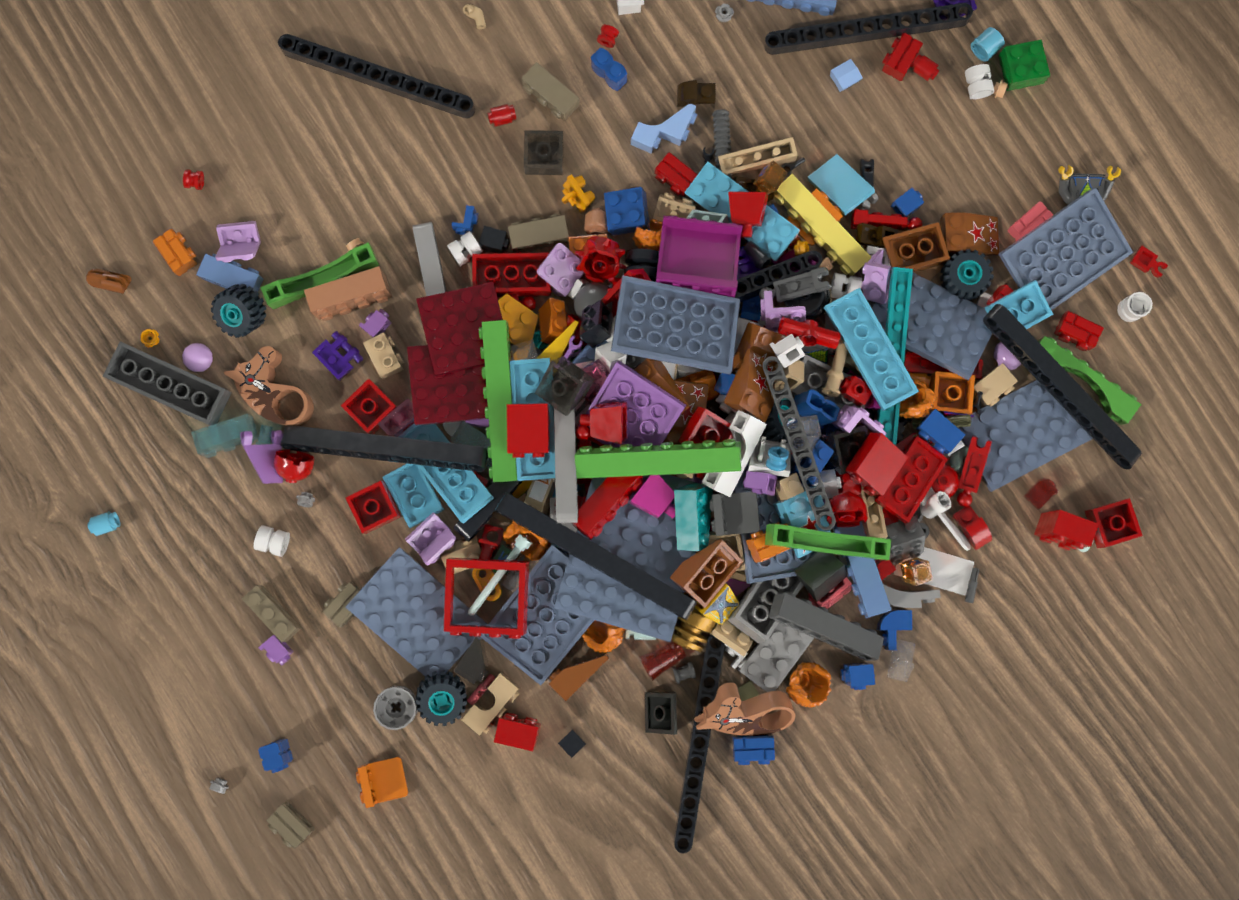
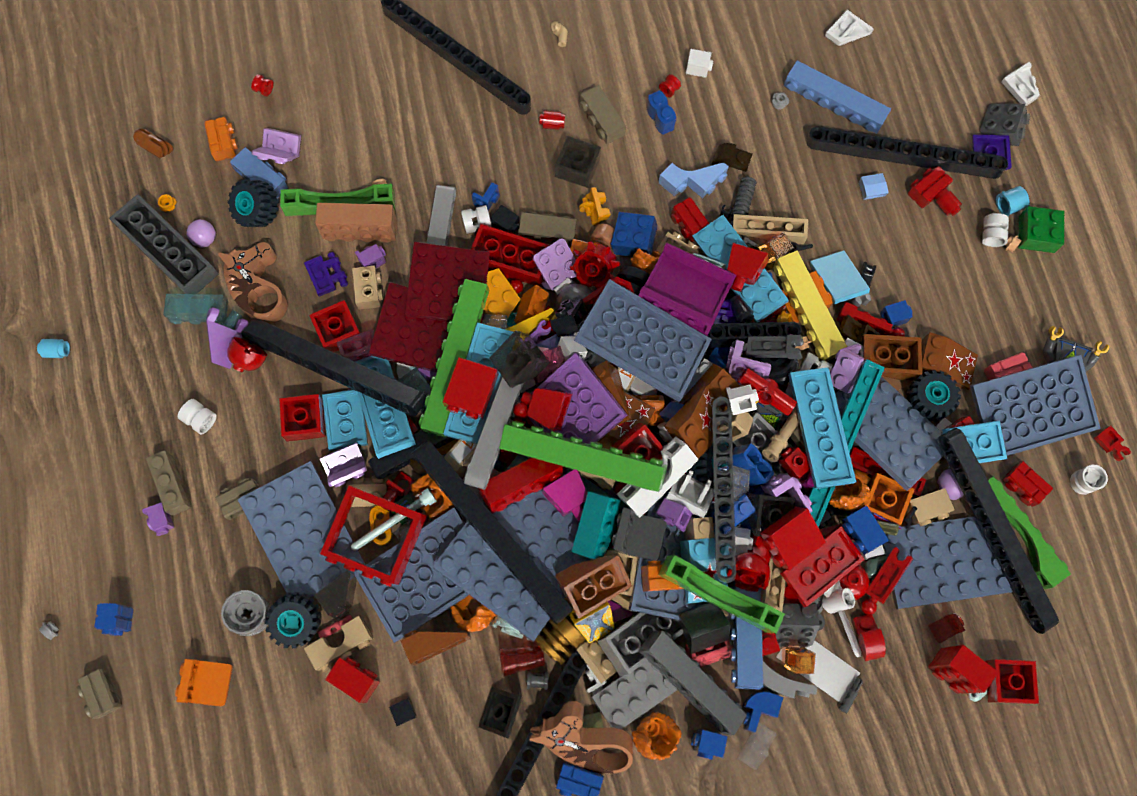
camera: 15 degrees right, 10 degrees down
(305, 499) = (243, 390): light grey plate -> none
(777, 458) = (697, 495): dark azure wheel -> none

